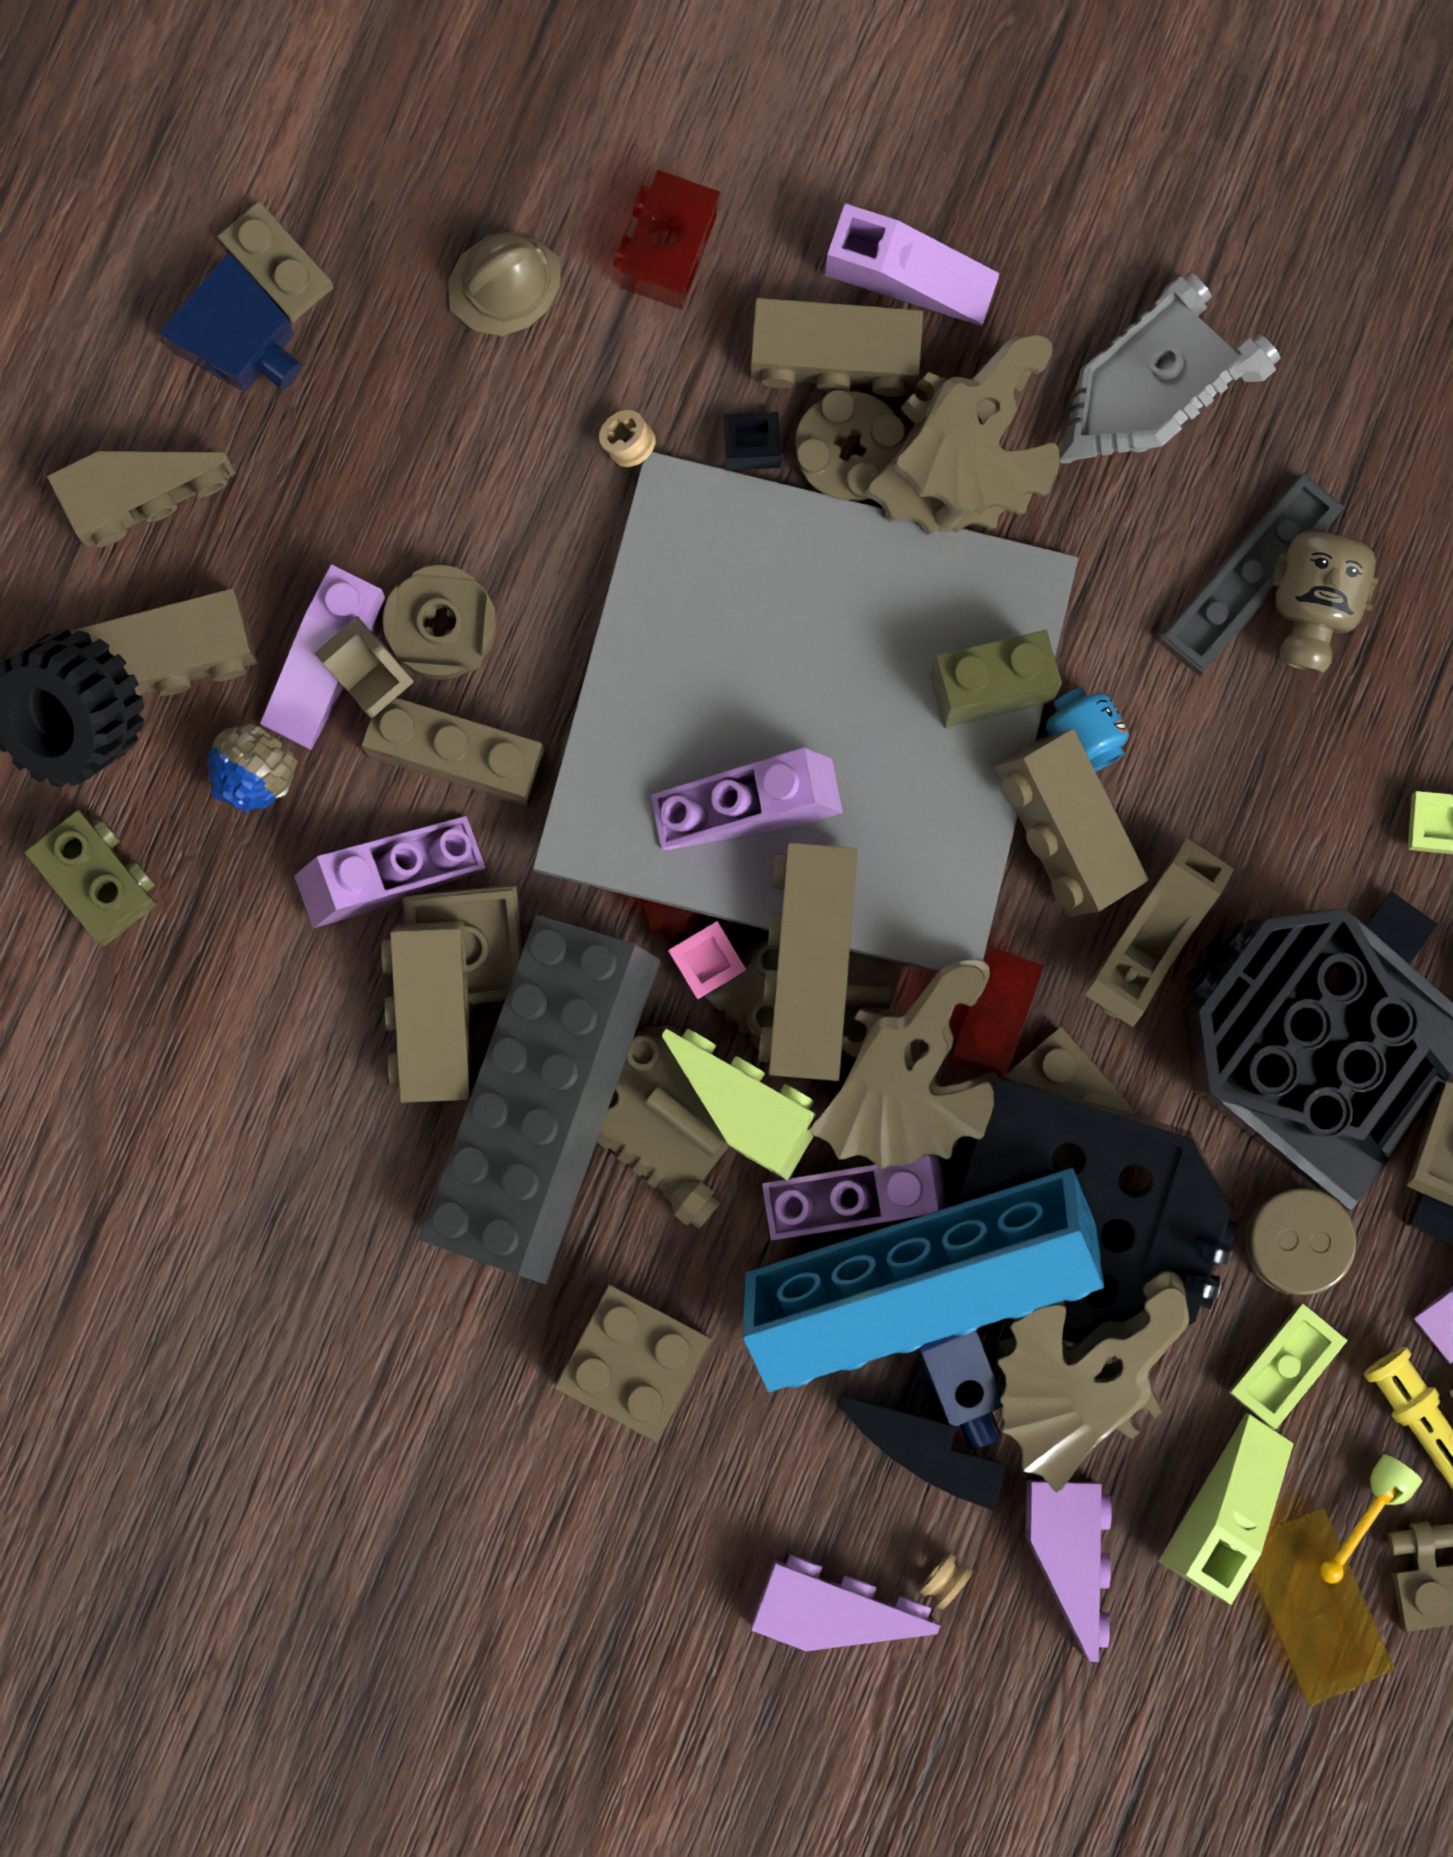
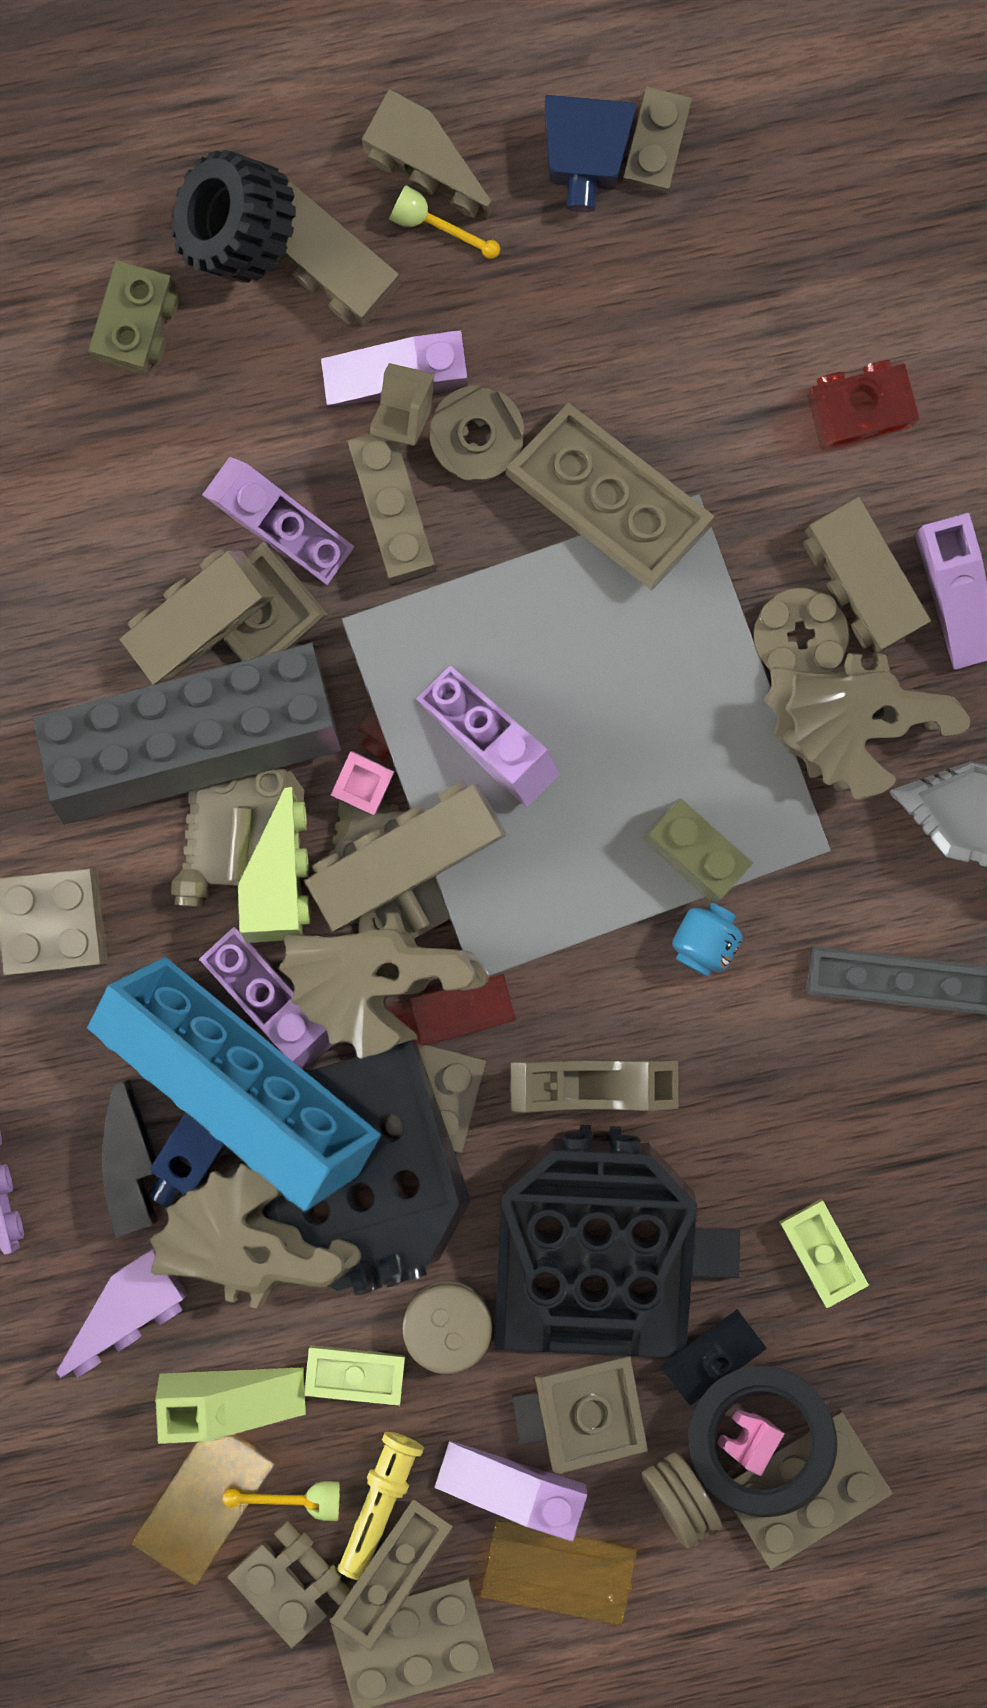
camera: 65 degrees right, 5 degrees up
(178, 537) = (412, 210): none -> hinge
(249, 767) = (281, 373): piece -> none
(503, 284) = (752, 311): dark tan piece -> none
(591, 533) = (610, 496): none -> dark tan plate
(620, 426) = (698, 462): tan bush -> none
(752, 441) = (757, 564): black tile -> none
(945, 1581) = (47, 1236): tan bush -> none
(1071, 823) = (630, 972): dark tan brick -> none
(1323, 591) = (922, 1039): dark tan piece -> none

